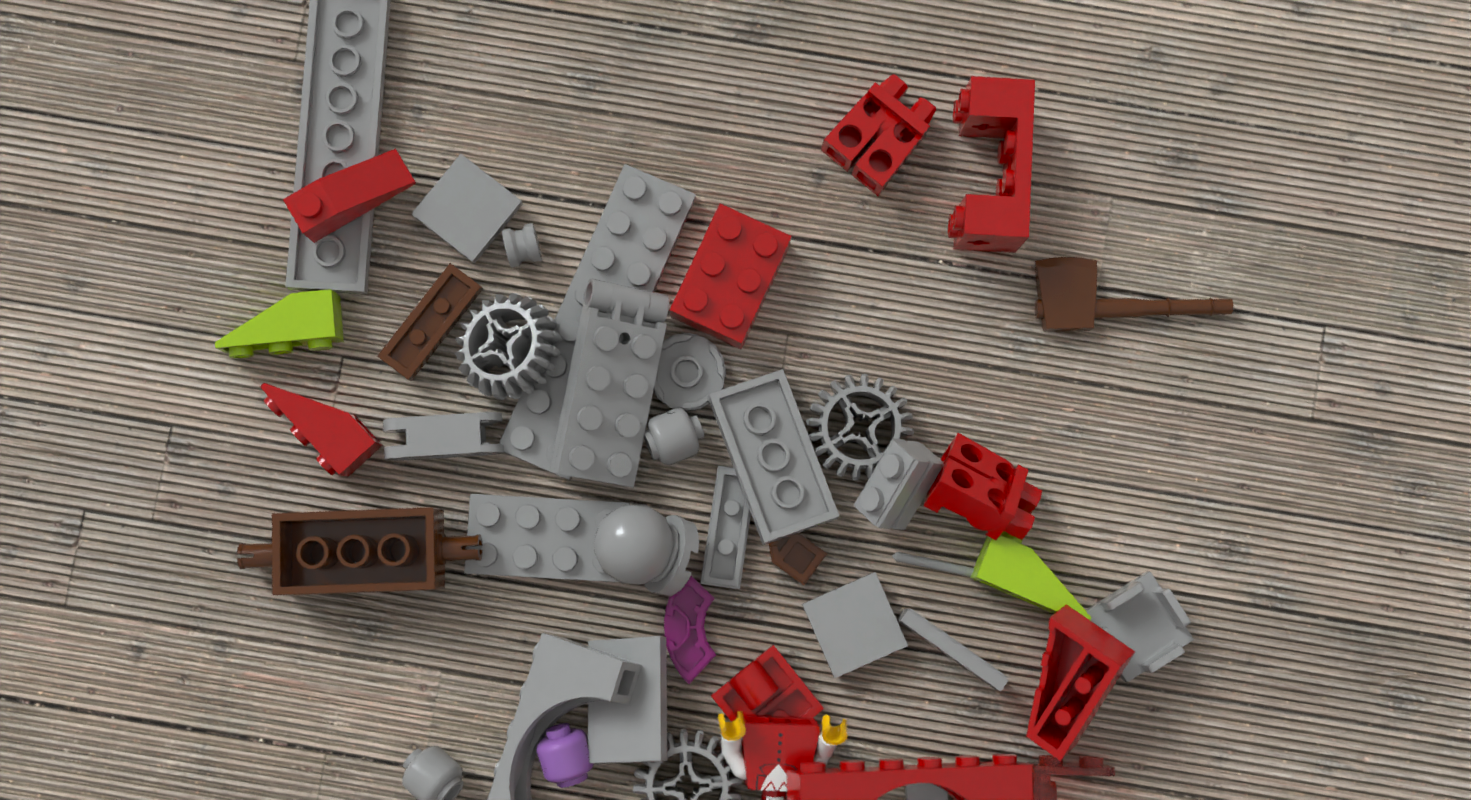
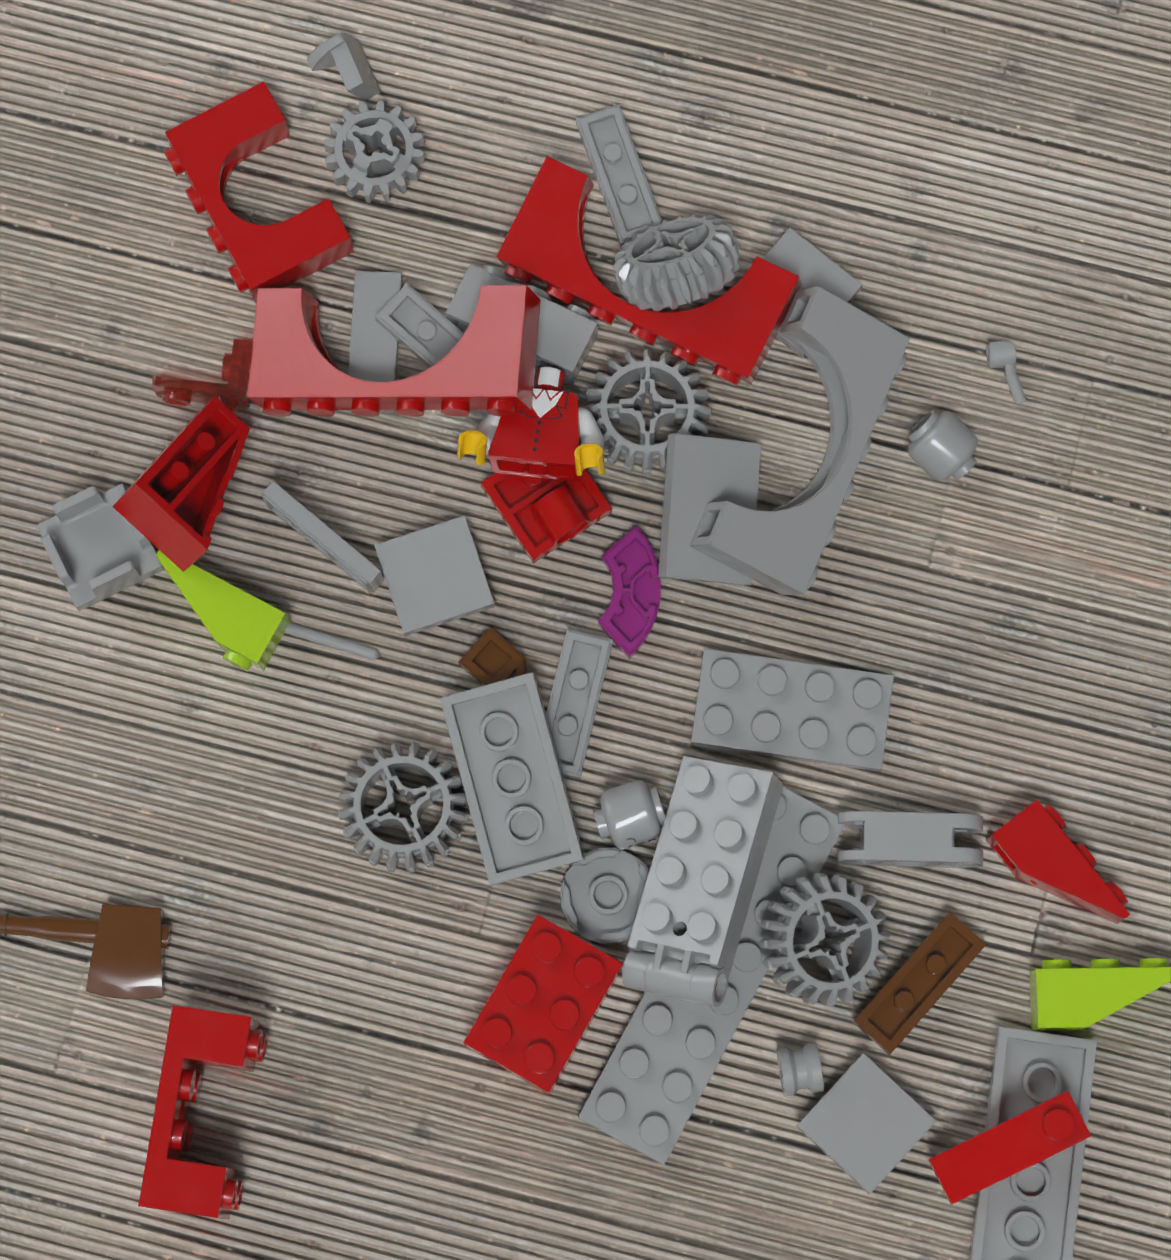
camera: 170 degrees left, 5 degrees down
(359, 551) = (1016, 706): reddish brown brick -> none
(564, 755) = (787, 456): medium lavender head -> none
(646, 548) = (672, 677): light grey tile -> none
(888, 122) = (323, 1182): red hips -> none
(898, 484) = (364, 728): light grey brick -> none
(984, 490) = (264, 715): red hips -> none

